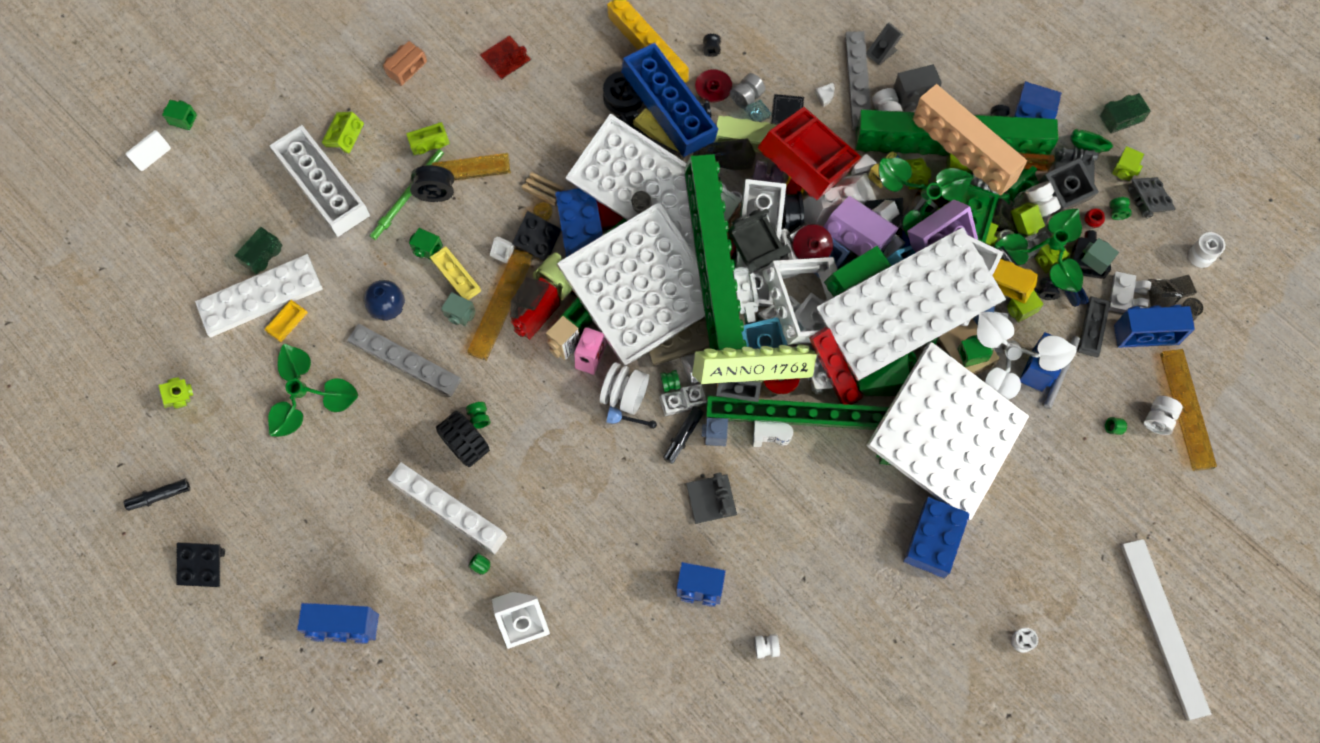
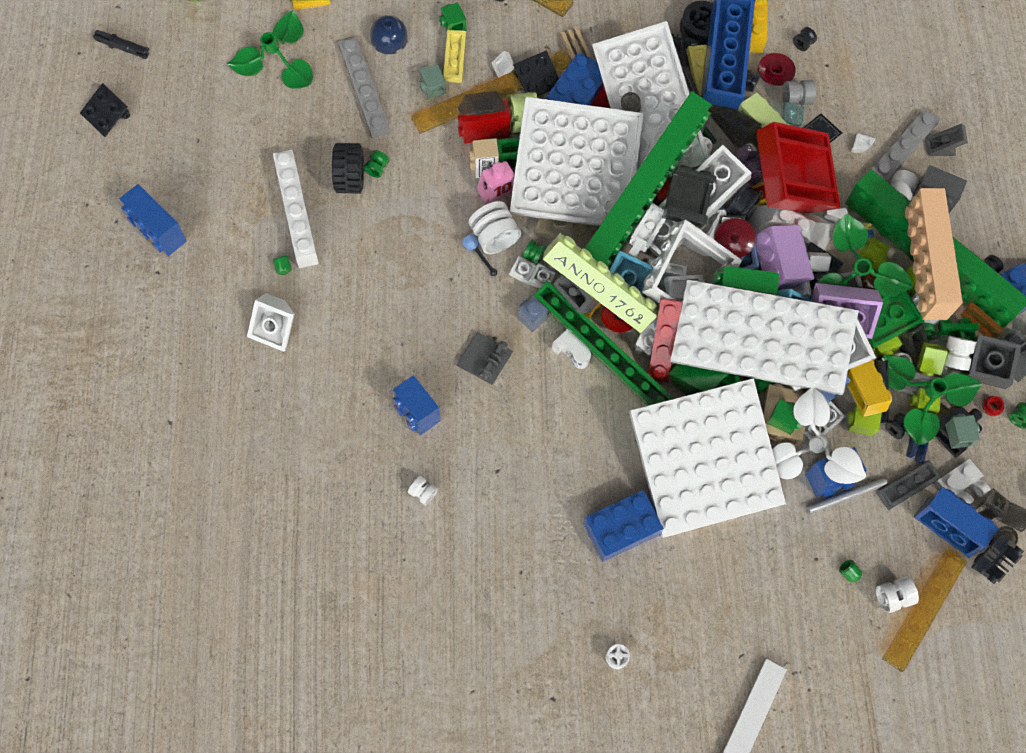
camera: 35 degrees right, 0 degrees up
(679, 441) = (500, 299): black axle -> none
(1200, 319) = (998, 550): none -> black hinge

